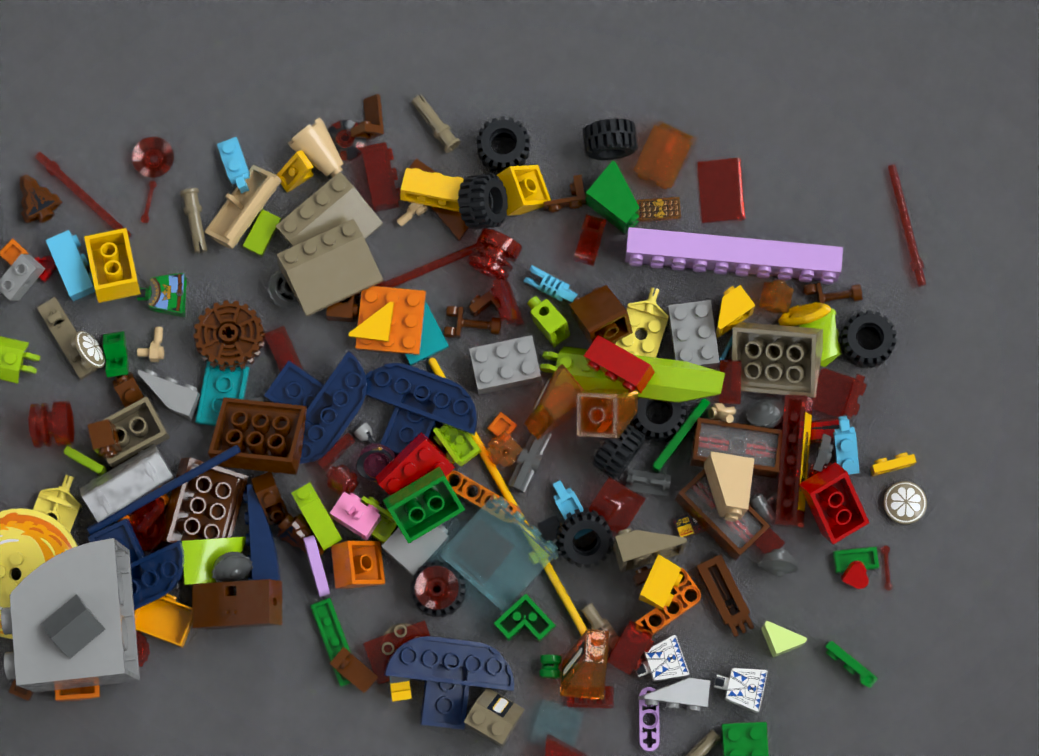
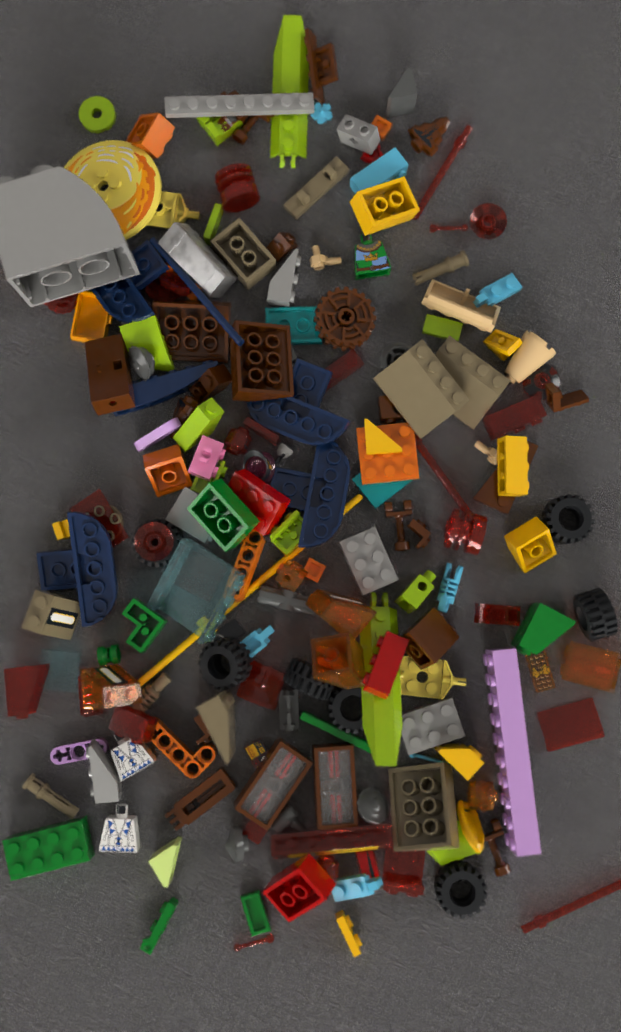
camera: 75 degrees right, 5 degrees up
(73, 626) = (38, 223): dark grey slope -> none
(89, 350) = (307, 204): dark tan dish -> none
(104, 438) = (227, 228): reddish brown brick -> none
(116, 354) = (312, 229): green slope -> none
(330, 632) = (98, 465): green tile -> none
(353, 670) = (74, 485): reddish brown bracket -> none
(440, 130) = (568, 462): dark tan pin -> none
(482, 201) = (511, 510): black tyre -> none
(509, 308) = (419, 555): clear red slope -> none
(573, 202) = (529, 594): reddish brown bracket -> none
(660, 583) = (192, 740): yellow slope -> none
(721, 413) = (364, 764): tan piece -> none
(730, 483) = (294, 790): tan slope -> none
(732, 382) = (404, 768): clear red tile -> none
(823, 453) = (343, 868): dark grey plate -> none
(856, 575) = (240, 916): red tile -> none
(905, 502) = (316, 949): dish -> none

